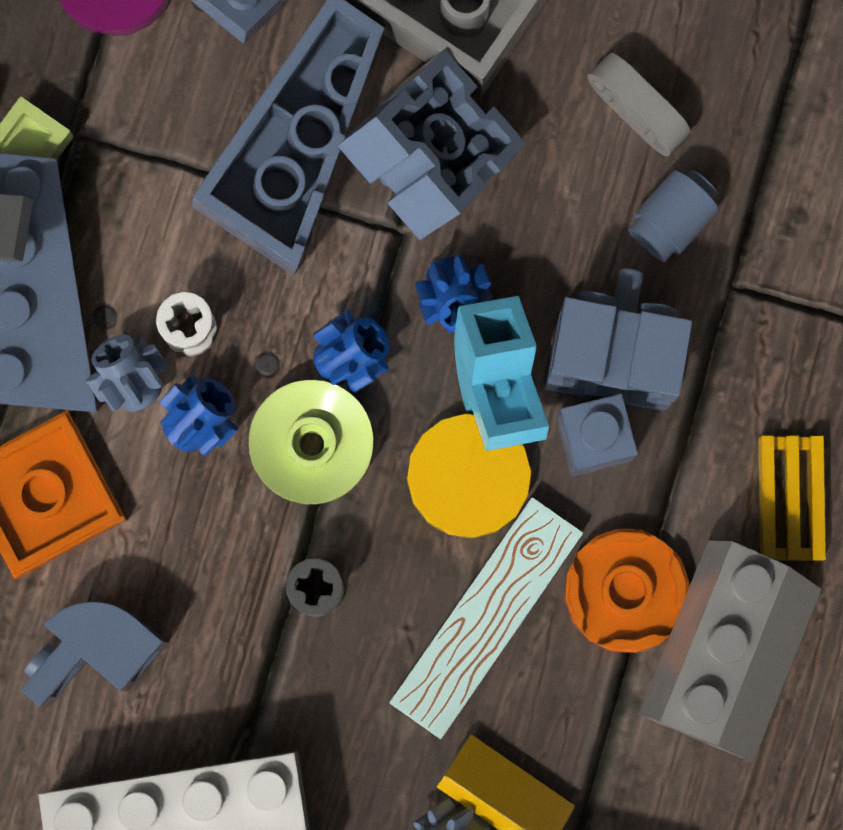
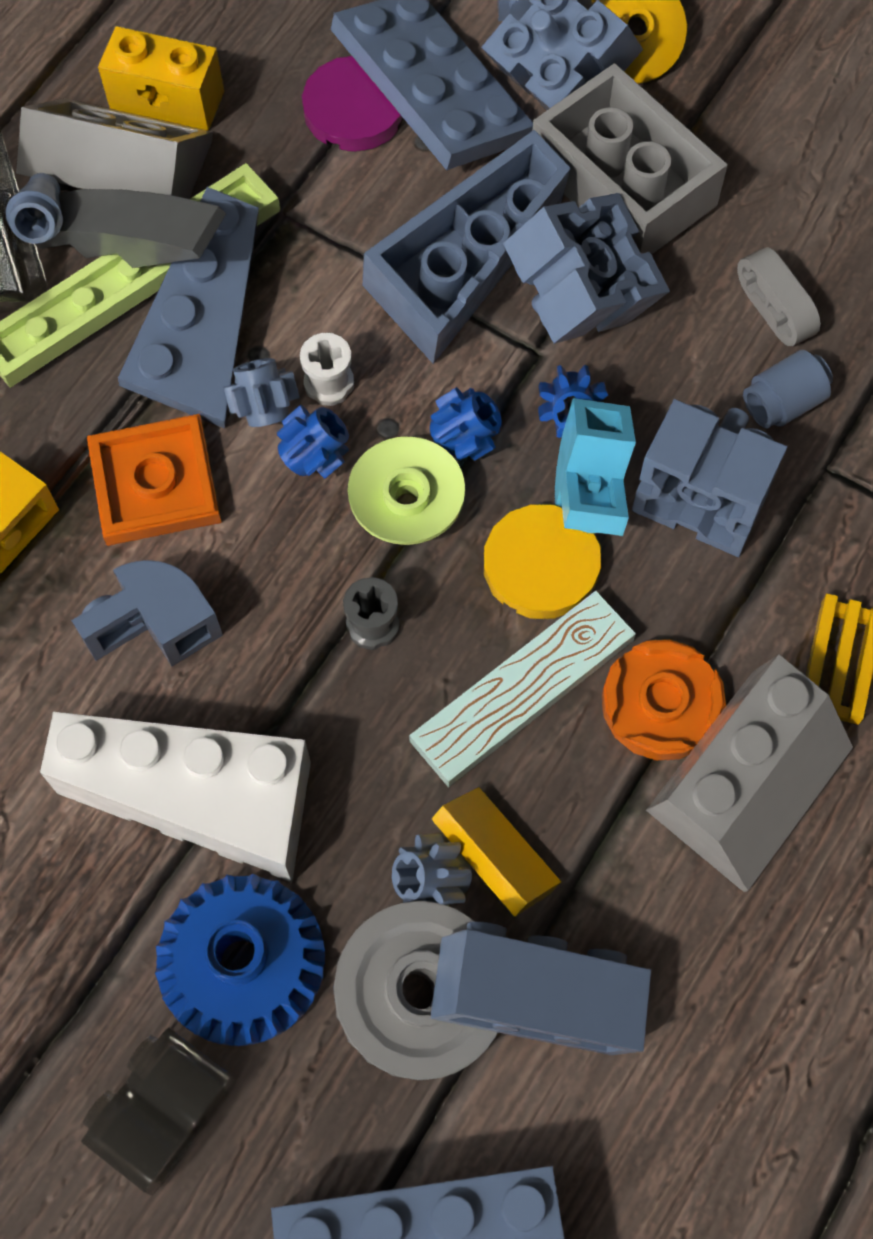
camera: 20 degrees right, 15 degrees down
(596, 435) = (670, 549): sand blue brick -> none

